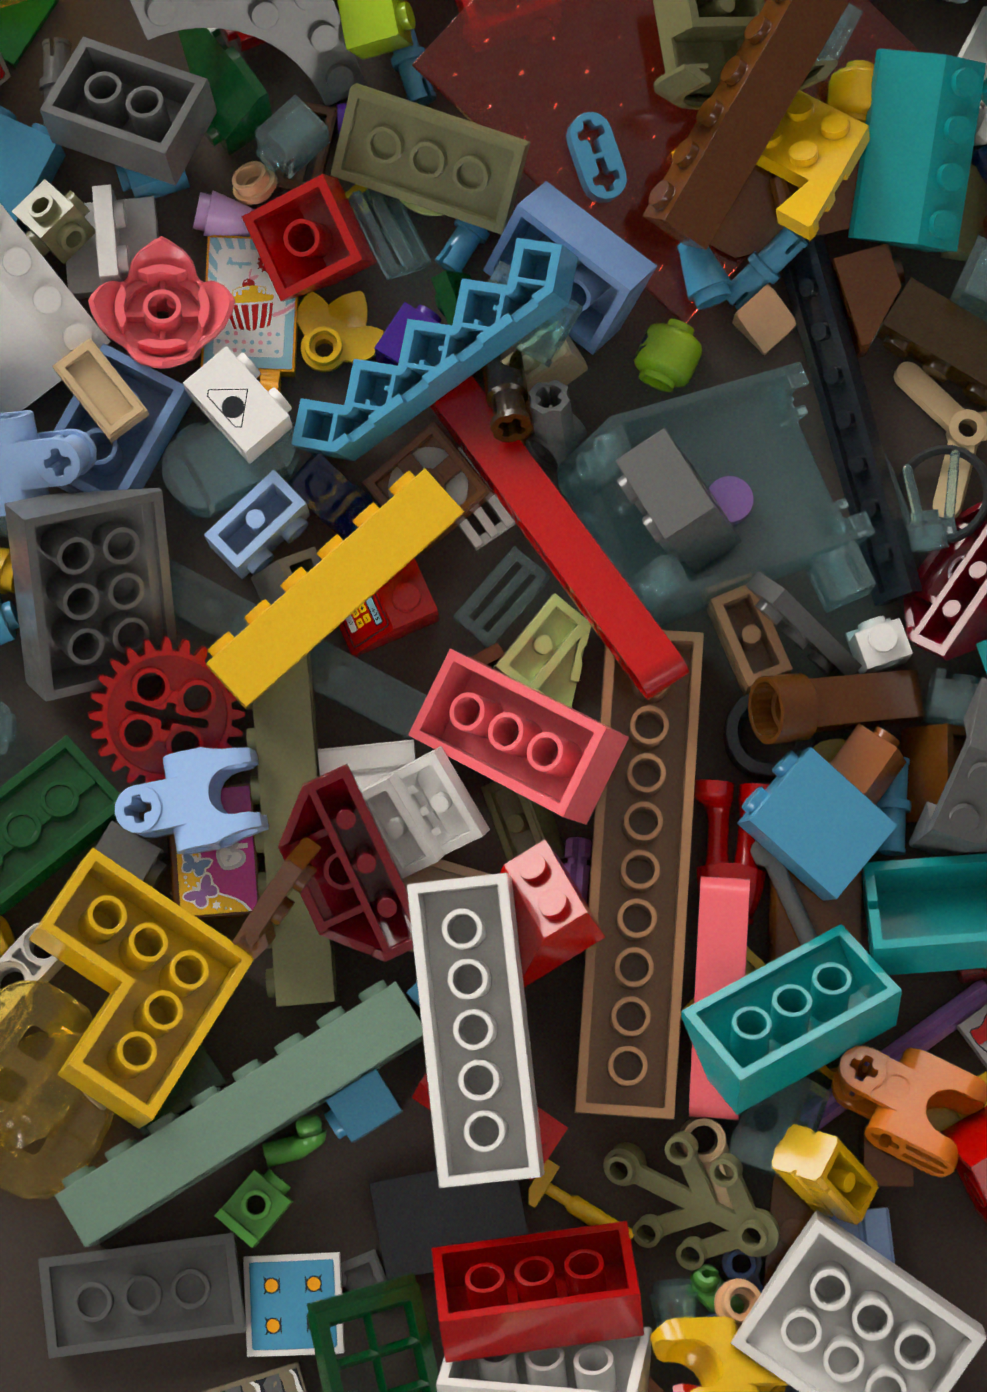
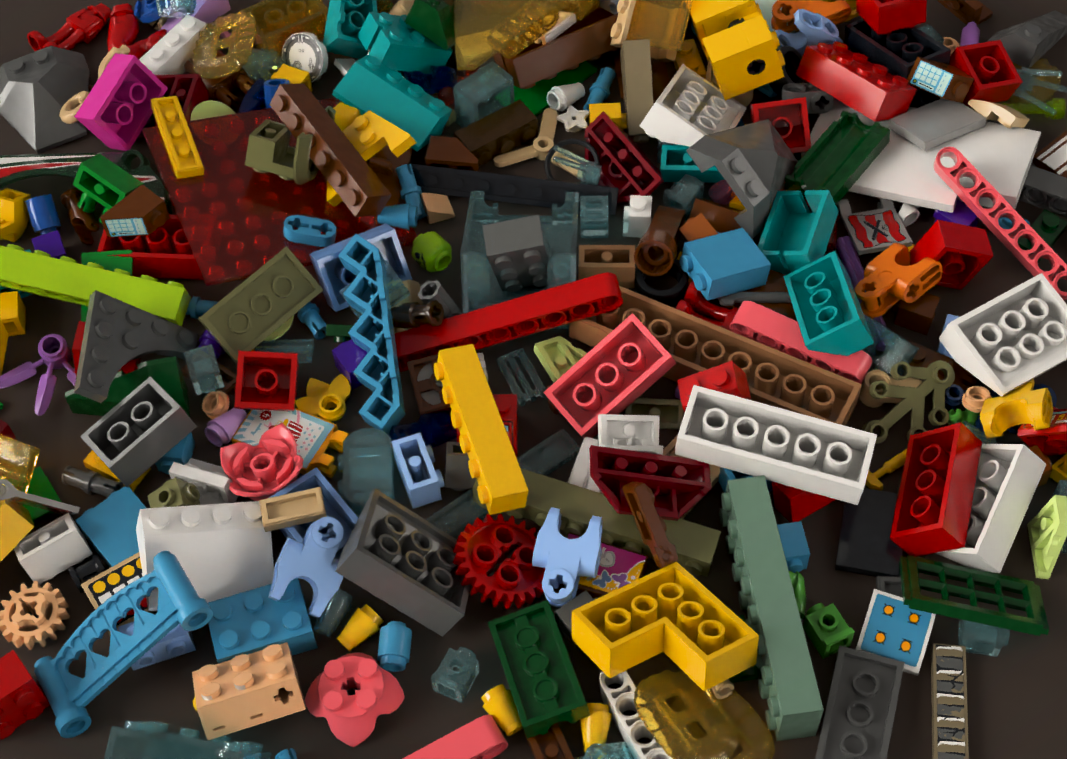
camera: 65 degrees left, 25 degrees down
(239, 403) = (344, 443): white brick -> none
(801, 627) = (612, 231): dark grey plate -> none
(824, 1174) = (919, 323): yellow brick -> none

